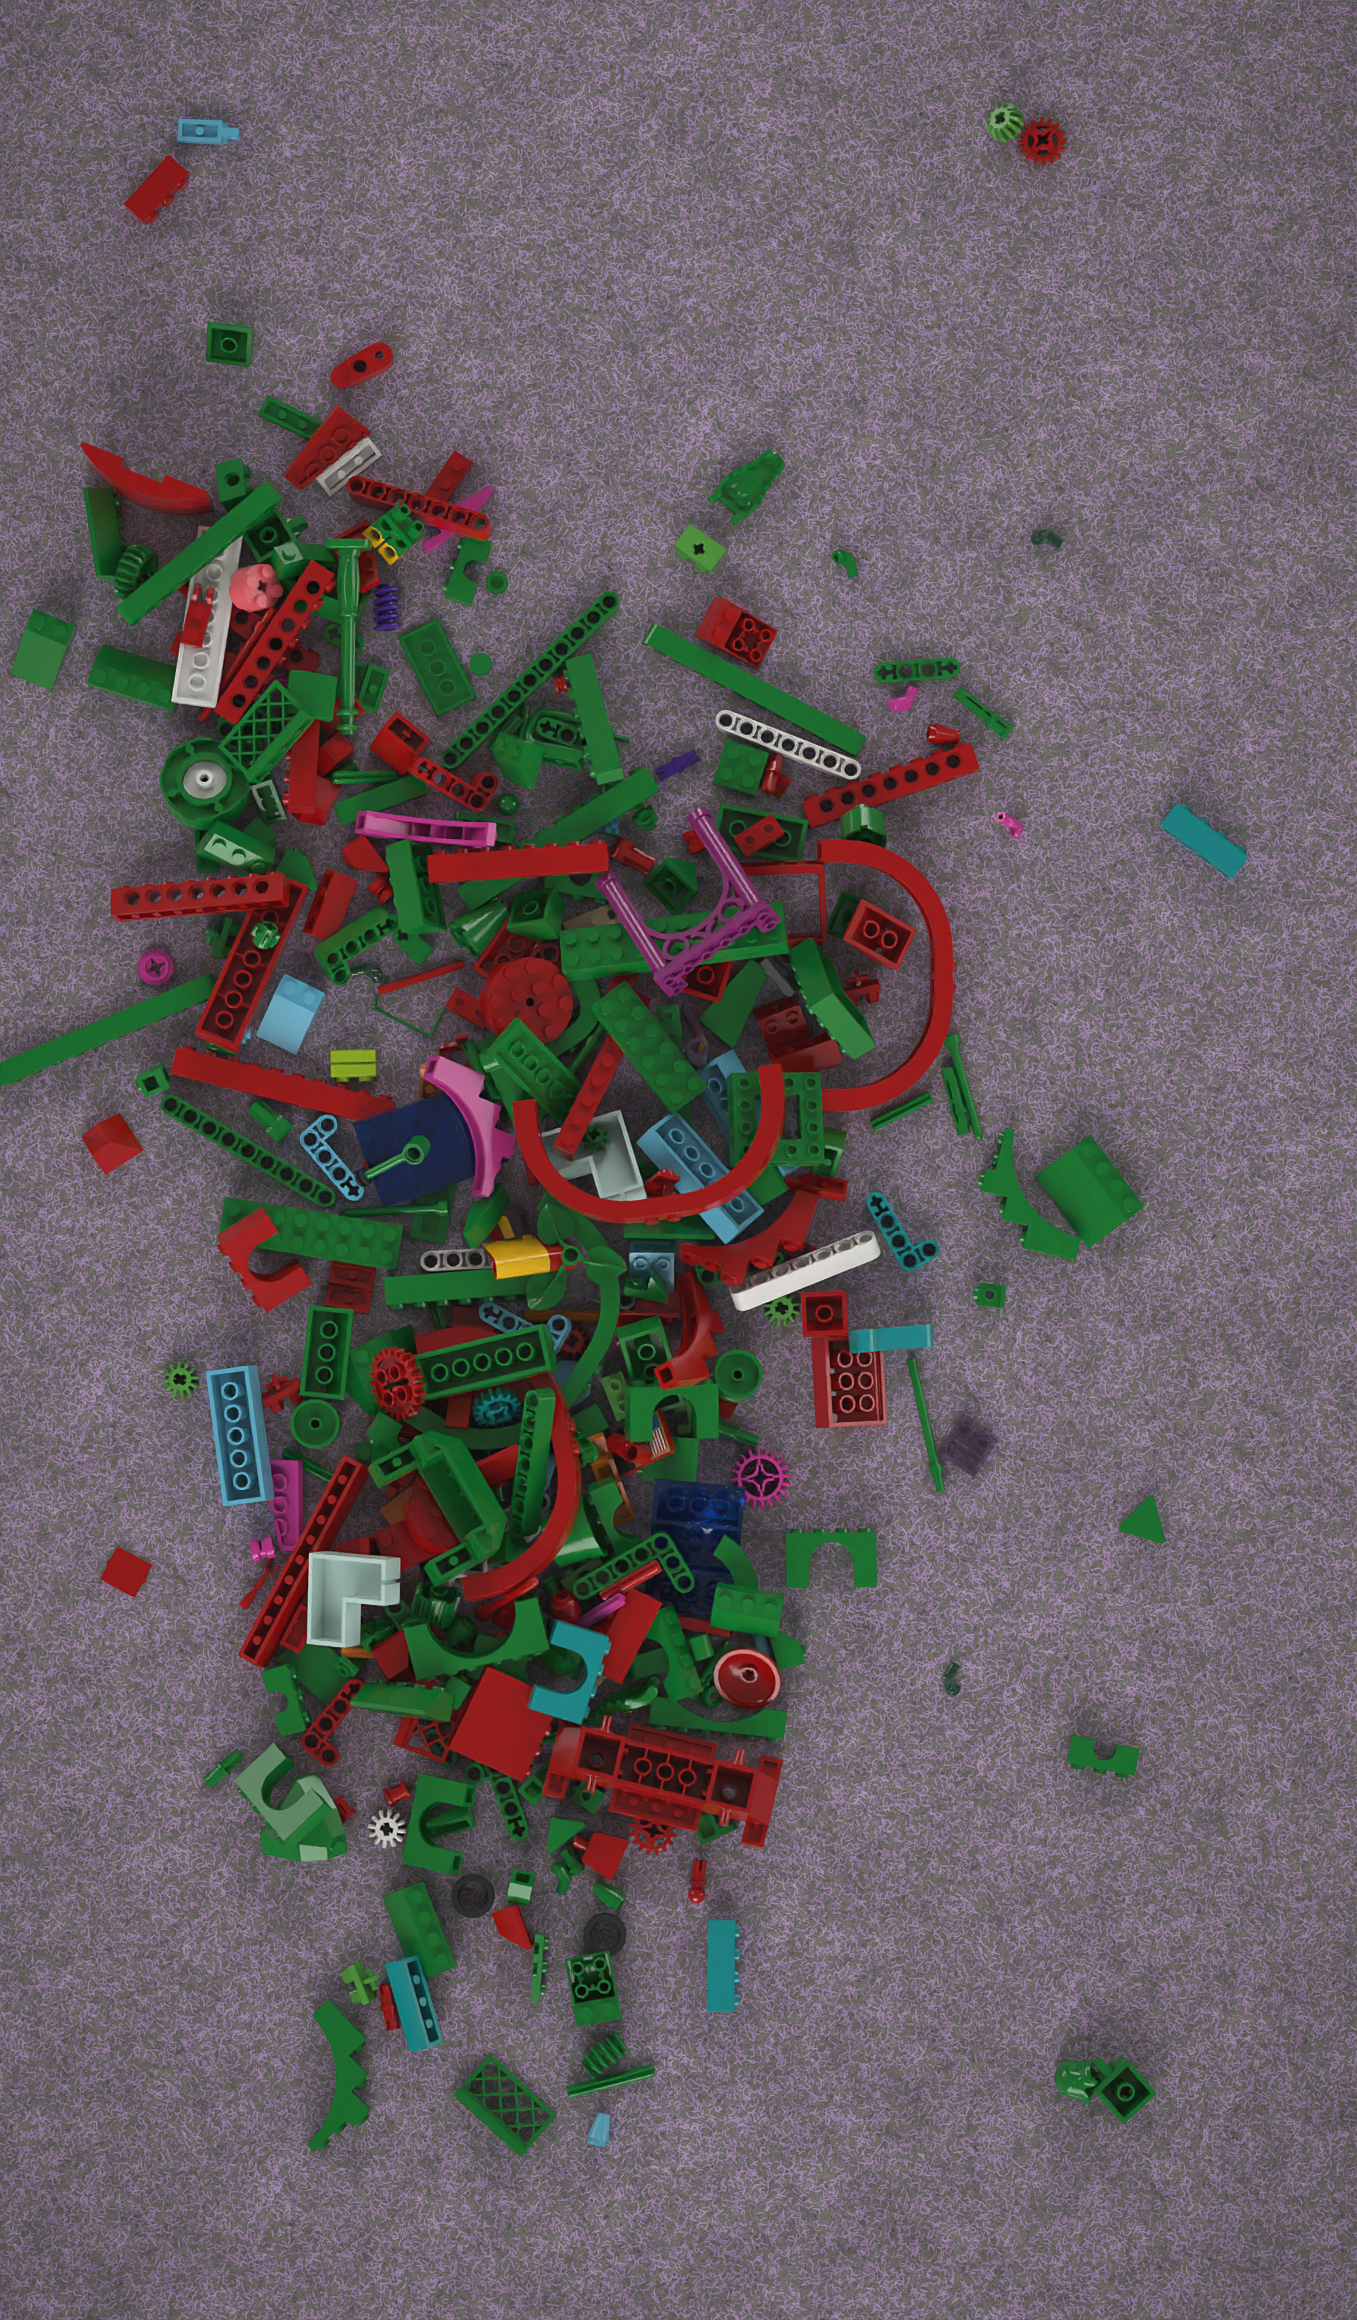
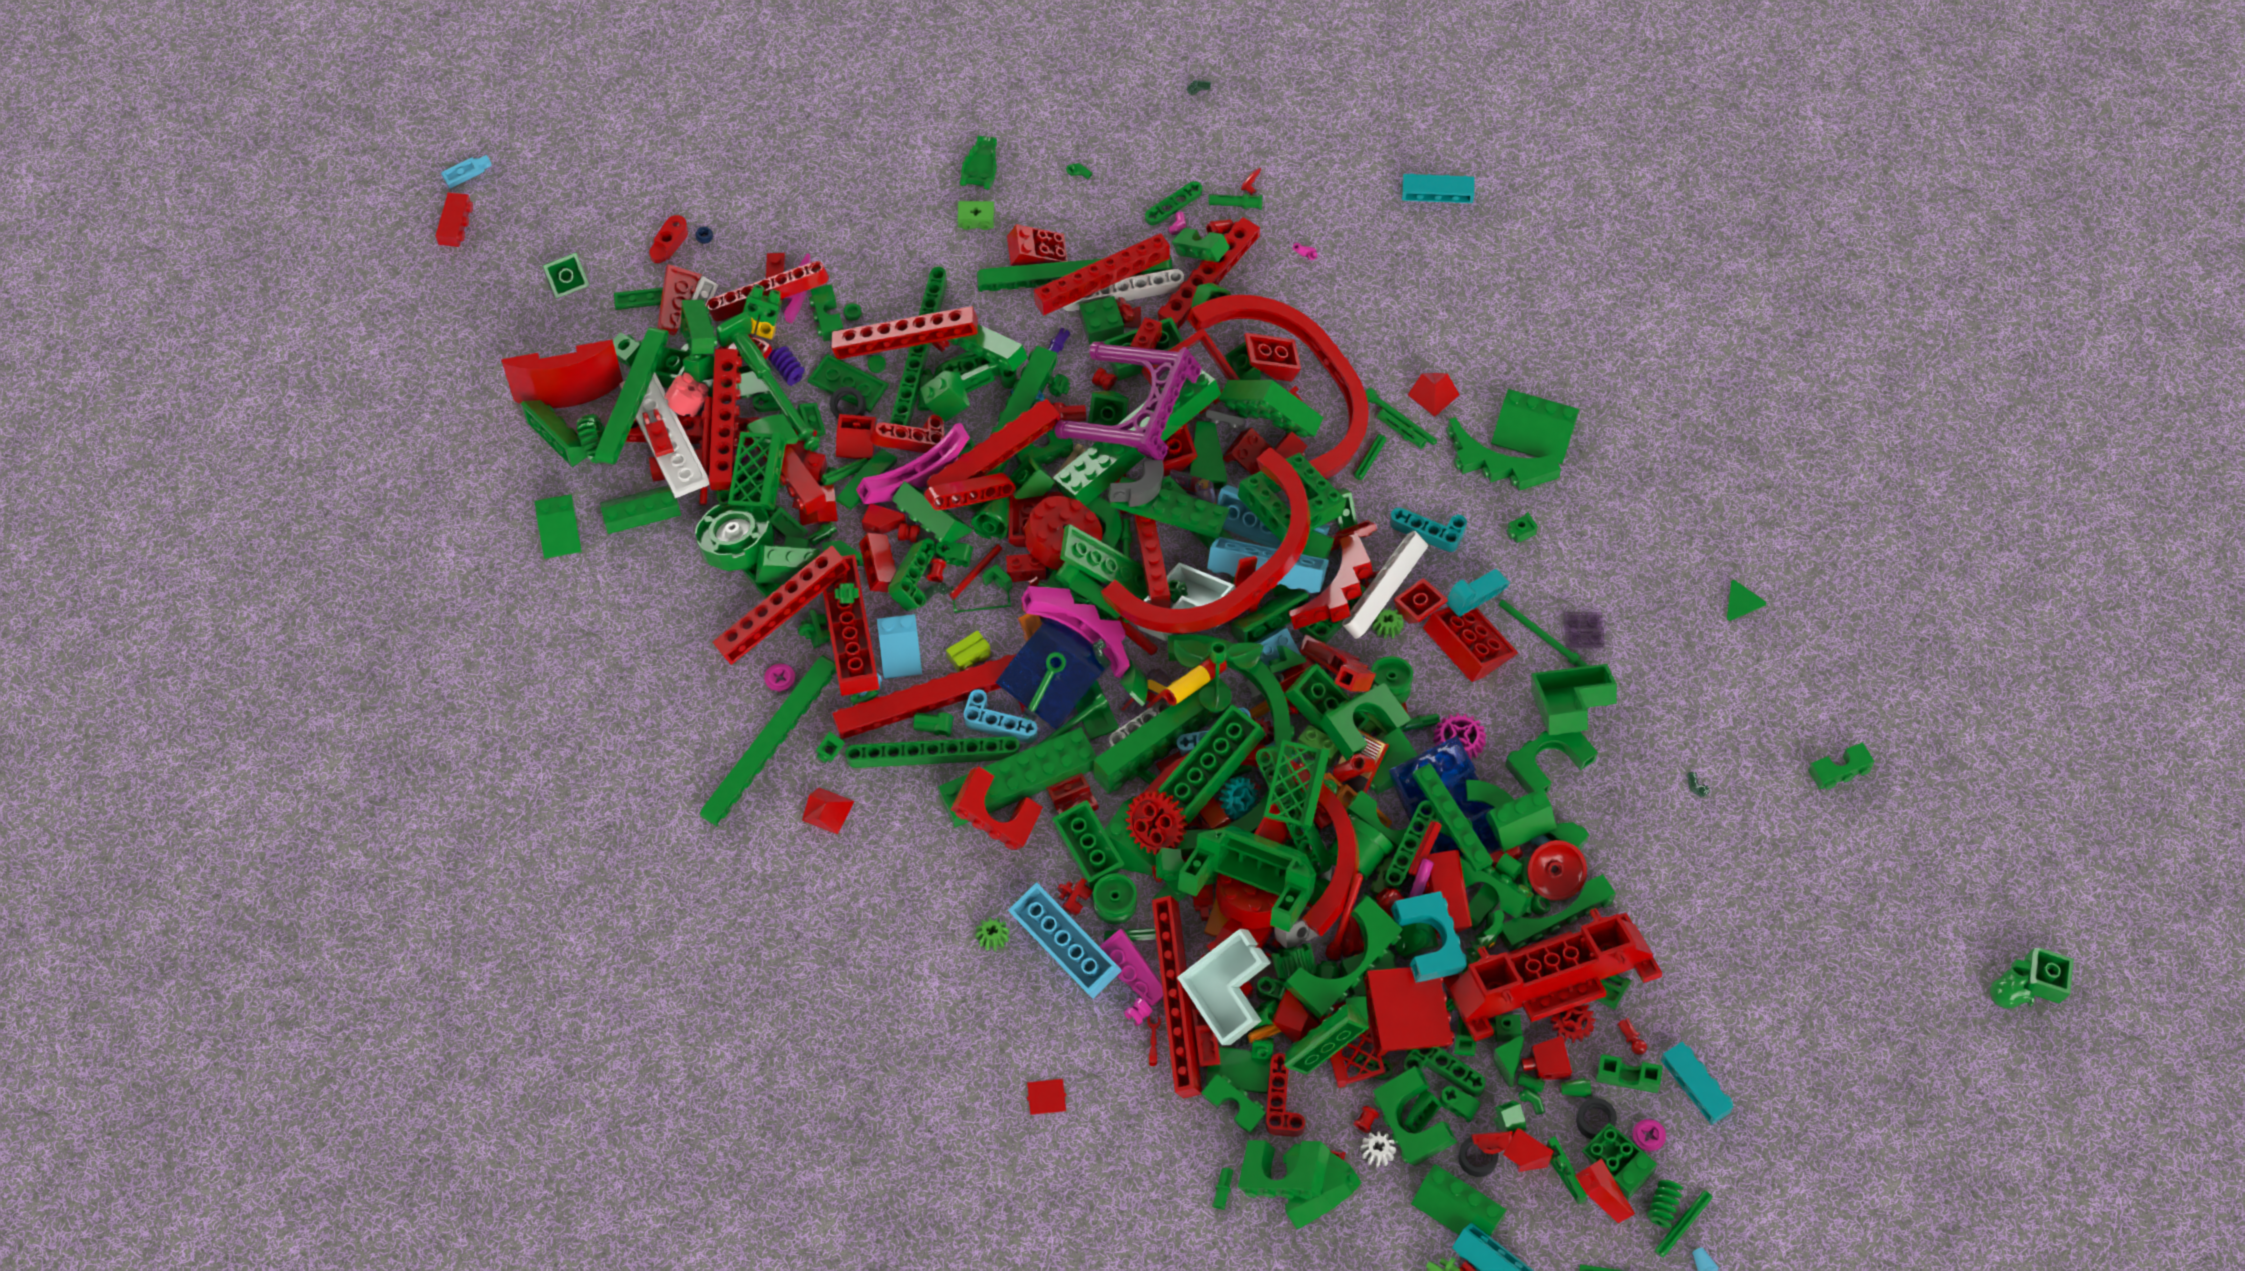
camera: 35 degrees left, 25 degrees down
(298, 831) = (824, 532): none -> green pin
(314, 514) = (697, 327): none -> green wedge
(382, 951) = (936, 570): none -> red bush
(400, 698) = (840, 393): none -> black tyre
(407, 376) = (701, 231): none -> dark blue plate
(437, 1005) = (999, 577): none -> green bracket
(462, 897) = (969, 491): none -> red beam
(470, 1163) = (1099, 654): none -> arm
(488, 1897) = (1492, 1142): none -> red plate
(492, 1840) = (1460, 1104): none -> green piece
(556, 2004) = (1604, 1191): none -> red slope
(560, 1459) = (1314, 784): none -> green fence
(586, 698) = (905, 332): none -> red brick
(630, 1019) = (1141, 491): none -> dark grey arch
(651, 1986) = (1646, 1126): none -> dark pink gear
(664, 1916) = (1643, 1077): none -> green arch
(677, 1569) = (1452, 817): none -> green plate
(772, 722) = (1101, 274): none -> red brick
(892, 1504) = (1568, 693): none -> green piece
(905, 764) = (1189, 244): none -> green arch
(1017, 695) = (1250, 180): none -> red bar
(1019, 1081) = (1434, 392): none -> red slope

